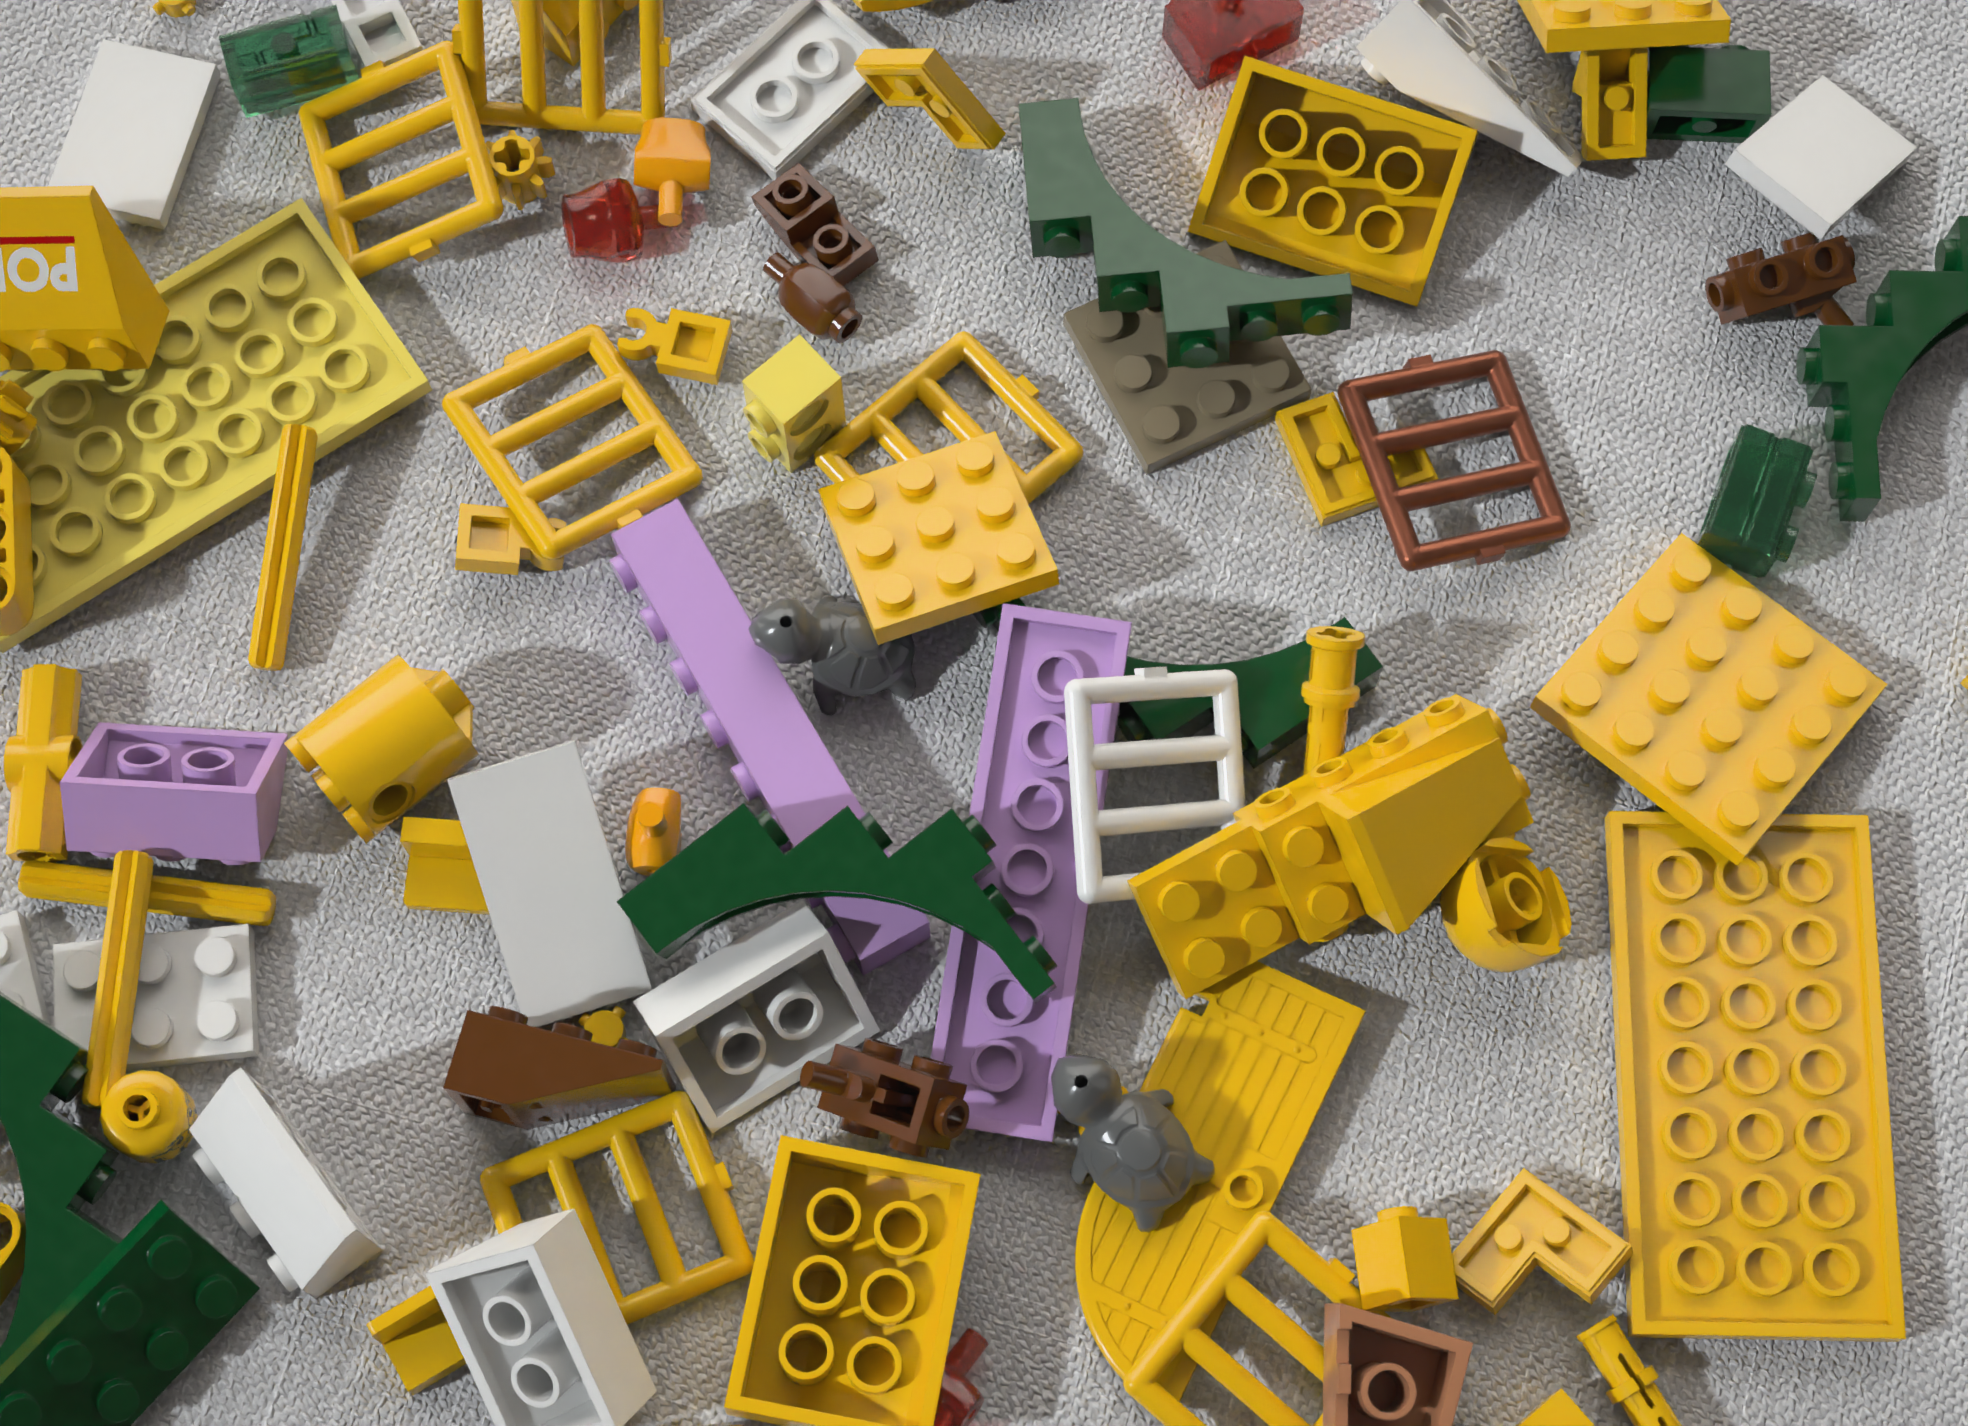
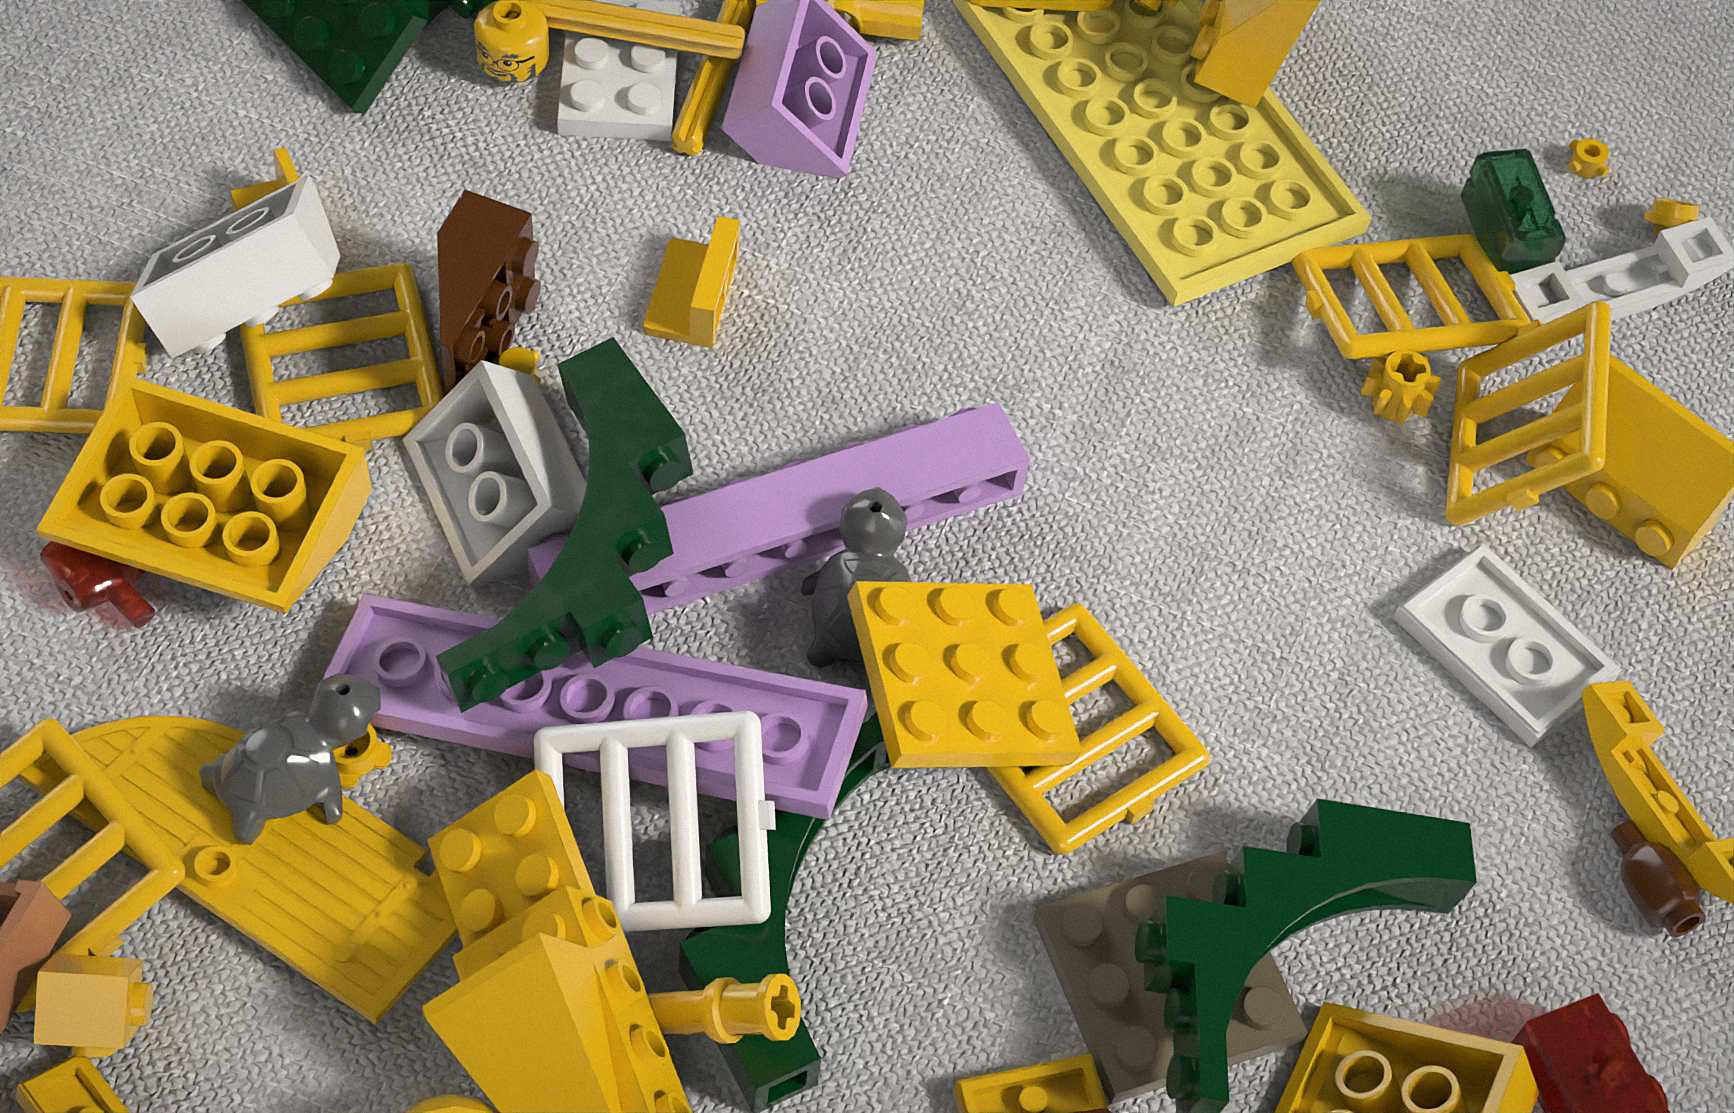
camera: 90 degrees right, 15 degrees down
(137, 130) = (1439, 113): white tile -> none
(280, 1187) = (430, 124): white slope -> none
(282, 547) = (1020, 173): yellow axle -> none
(388, 744) = (810, 214): yellow cylinder -> none
(495, 541) = (1012, 333): yellow plate -> none
(524, 497) = (1115, 473): yellow bar -> none
(550, 884) = (664, 311): white tile -> none
(607, 222) = (1343, 454): clear red piece -> none
(653, 830) = (698, 410): light orange piece -> none
(674, 161) = (1407, 513): light orange piece -> none
(686, 346) = (1206, 502): yellow plate -> none
(793, 404) = (1123, 565): light yellow brick -> none
(812, 226) = (1335, 638): reddish brown slope -> none
(814, 299) = (1249, 621): reddish brown plant -> none
(883, 1094) = (387, 554): reddish brown brick -> none
(927, 81) = (1481, 738): yellow tile -> none

